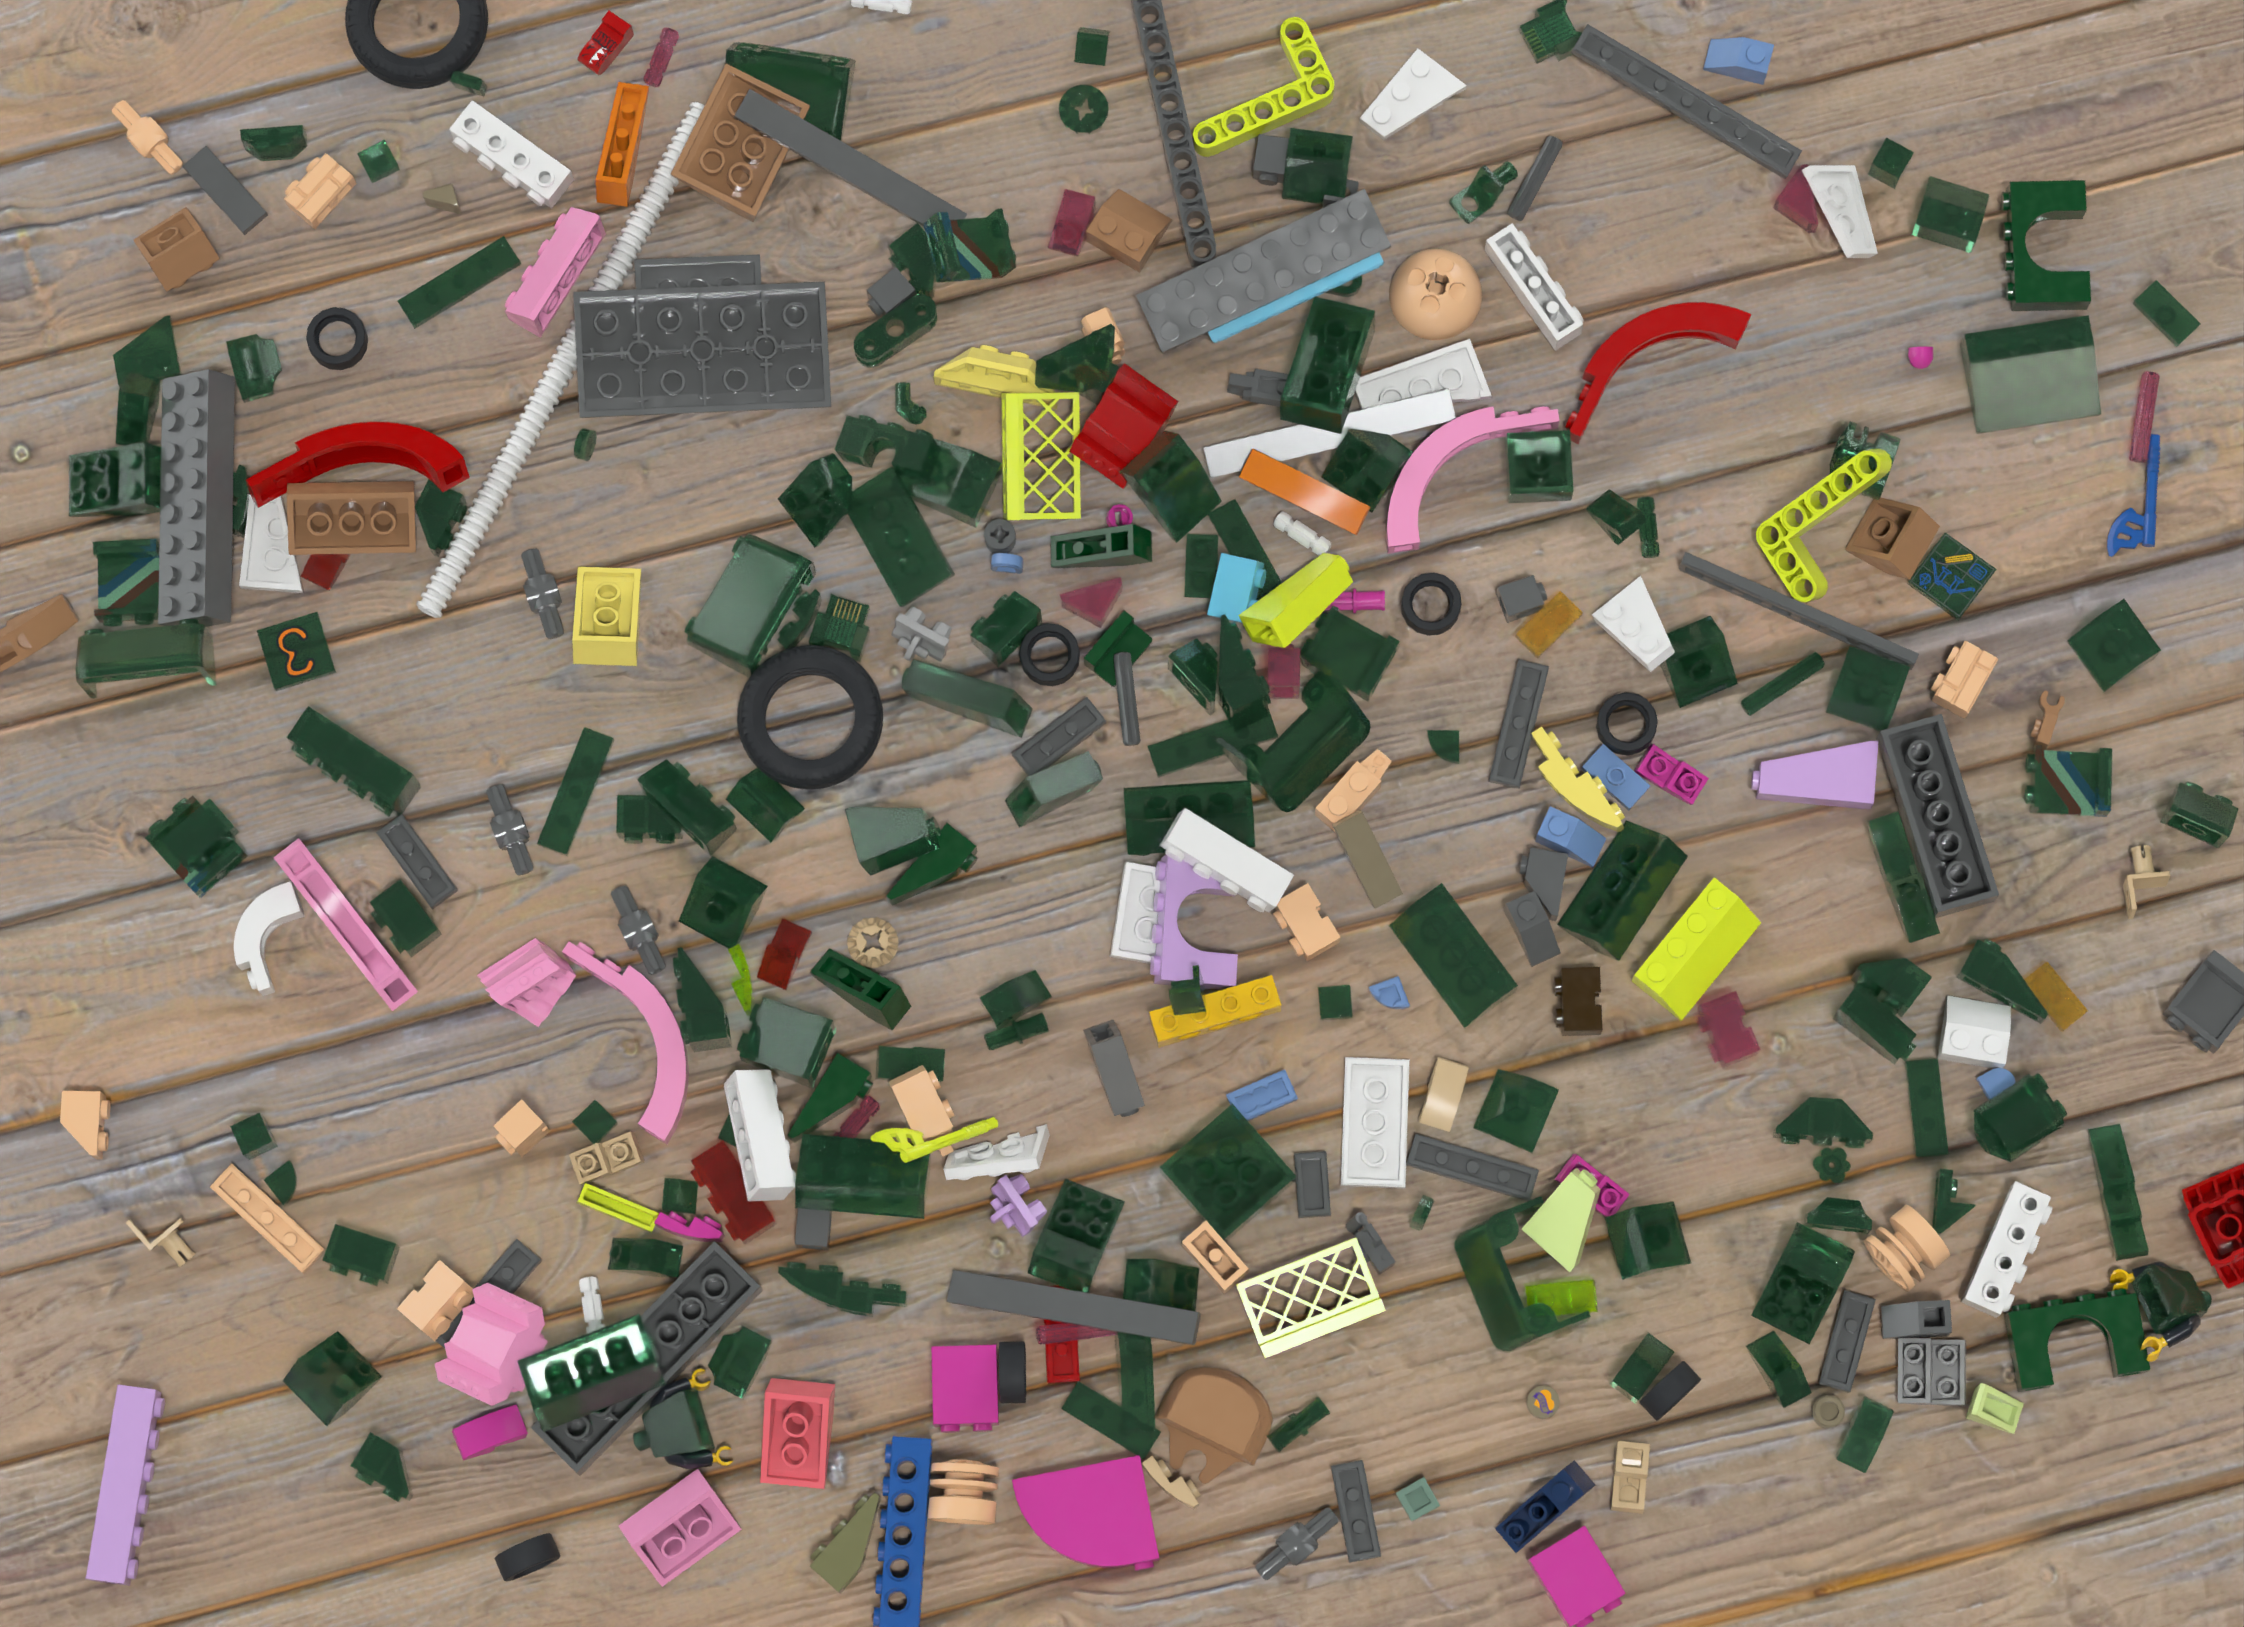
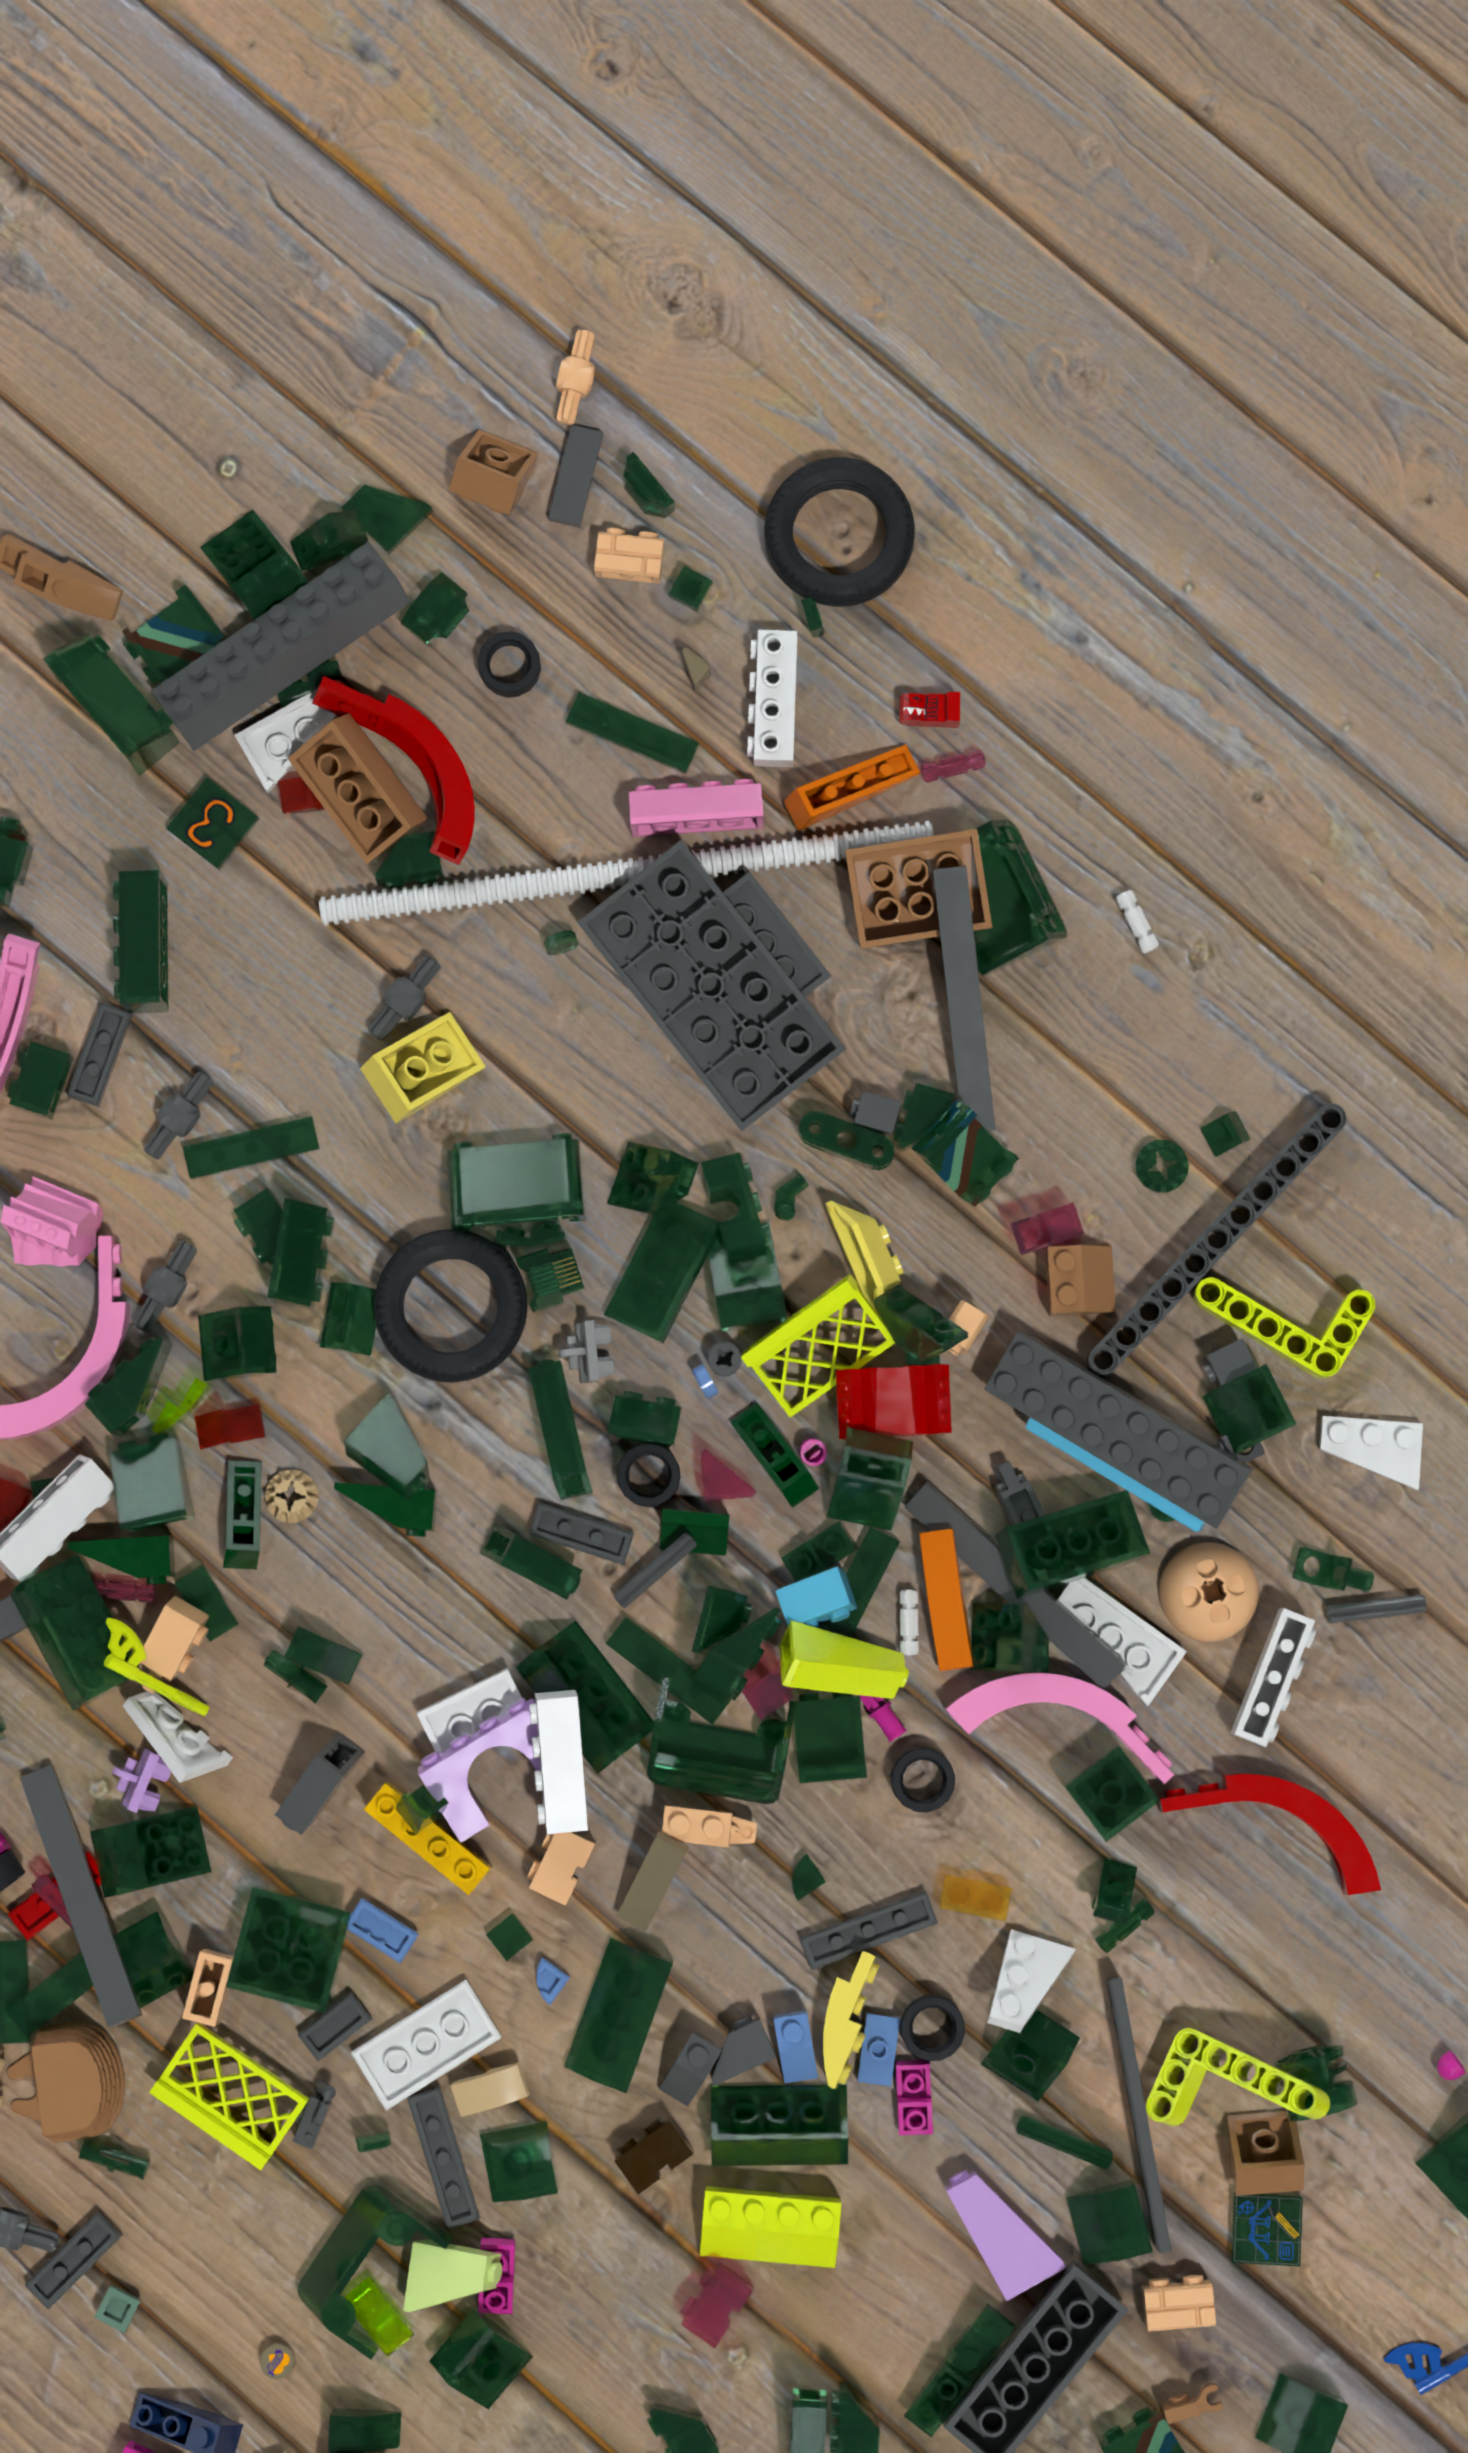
camera: 55 degrees right, 5 degrees up
(1521, 598) = (982, 1857): dark grey brick -> none

